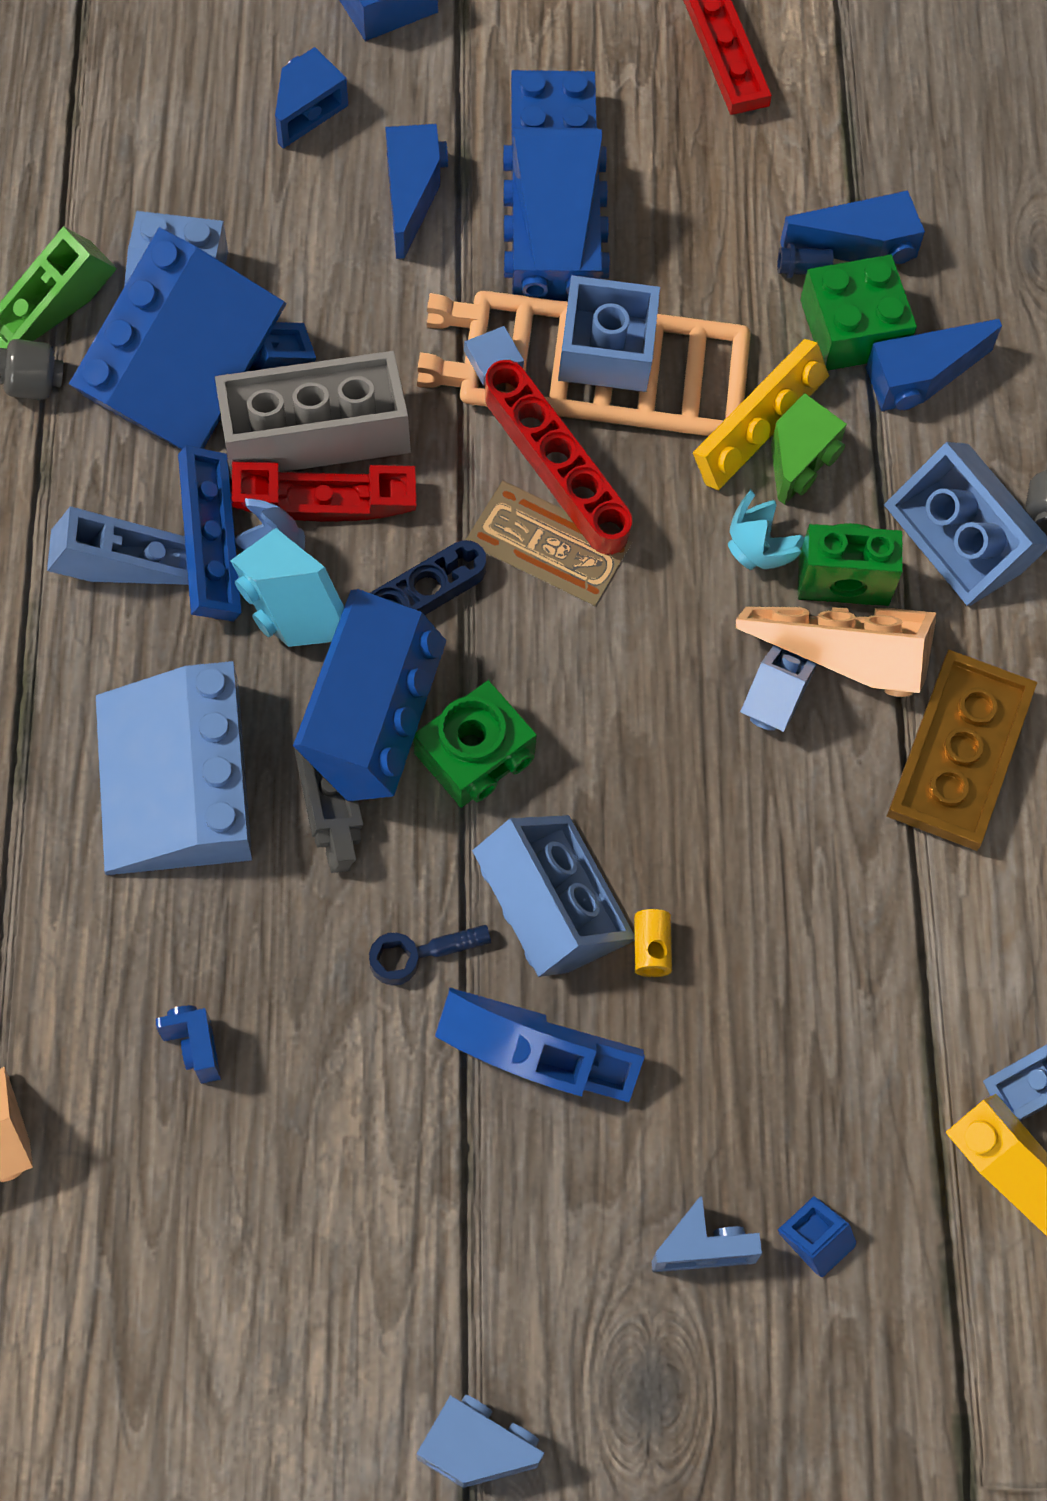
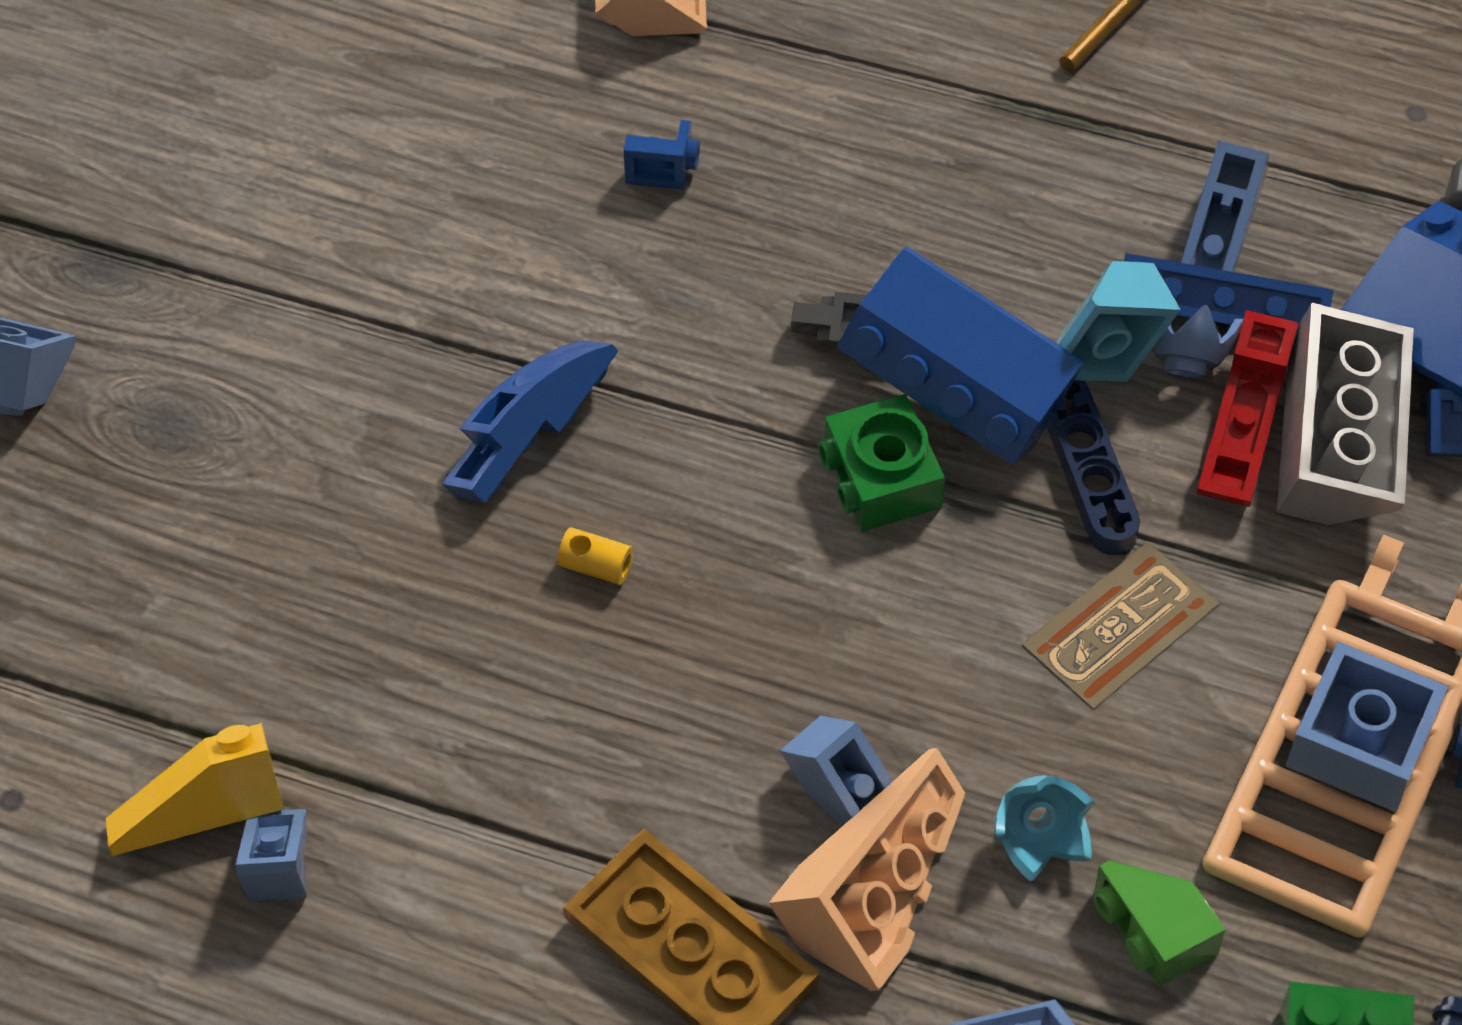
camera: 115 degrees right, 10 degrees down
(173, 771) = (961, 212): medium blue slope -> none
(436, 947) = (679, 358): dark blue piece -> none
(475, 1449) = (191, 264): medium blue slope -> none
(490, 348) = (1380, 617): medium blue tile -> none
(552, 893) = (687, 483): medium blue slope -> none
(556, 437) = (1235, 618): red beam -> none
(692, 1249) = (270, 487): medium blue slope -> none
(757, 415) = (1198, 854): yellow plate -> none
(818, 1236) = (231, 604): blue slope -> none
(849, 564) = (969, 898): green brick -> none

